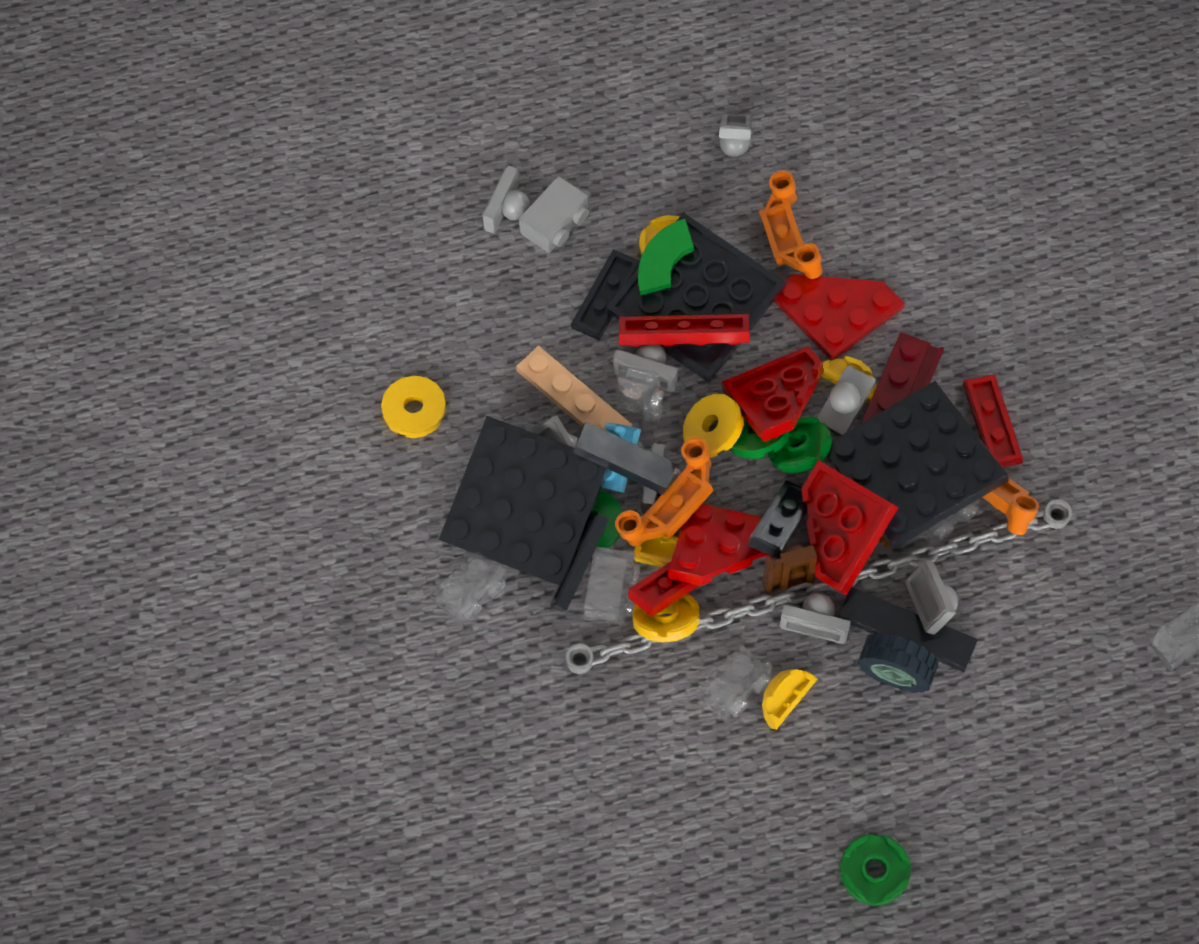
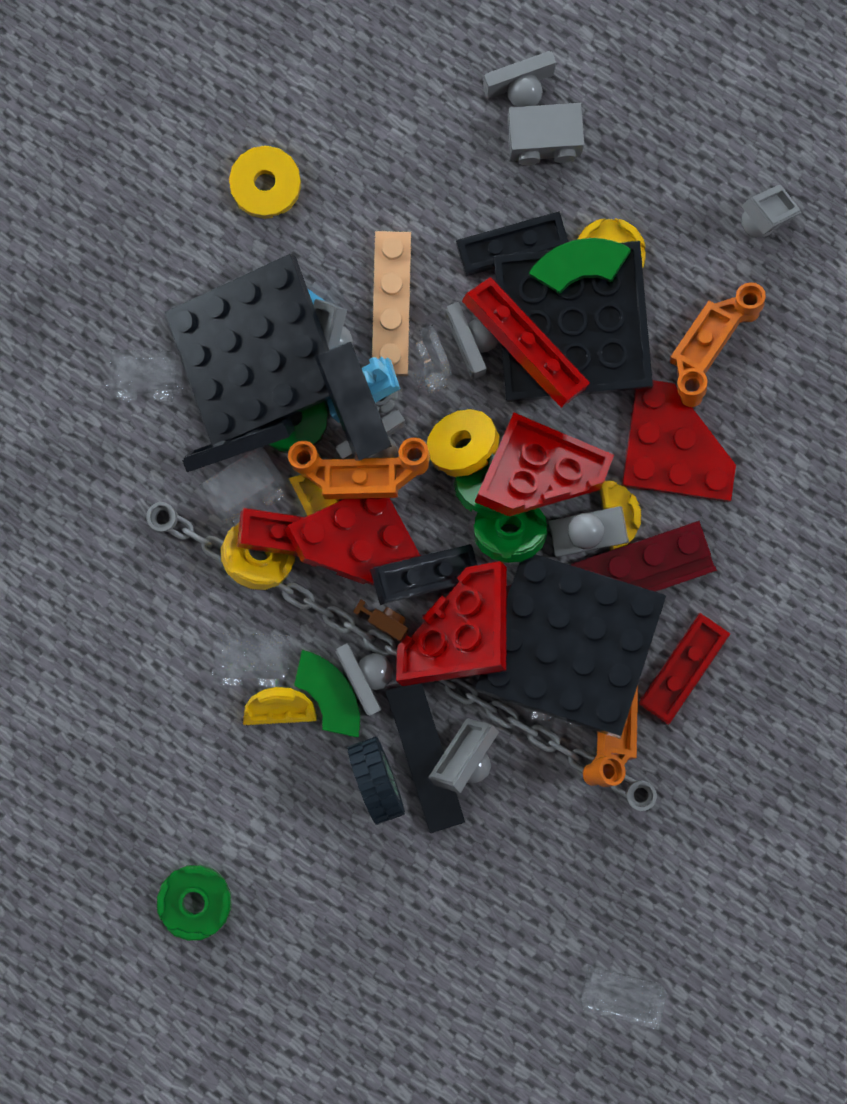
camera: 45 degrees right, 20 degrees up
(807, 653) = (332, 693): none -> green tile

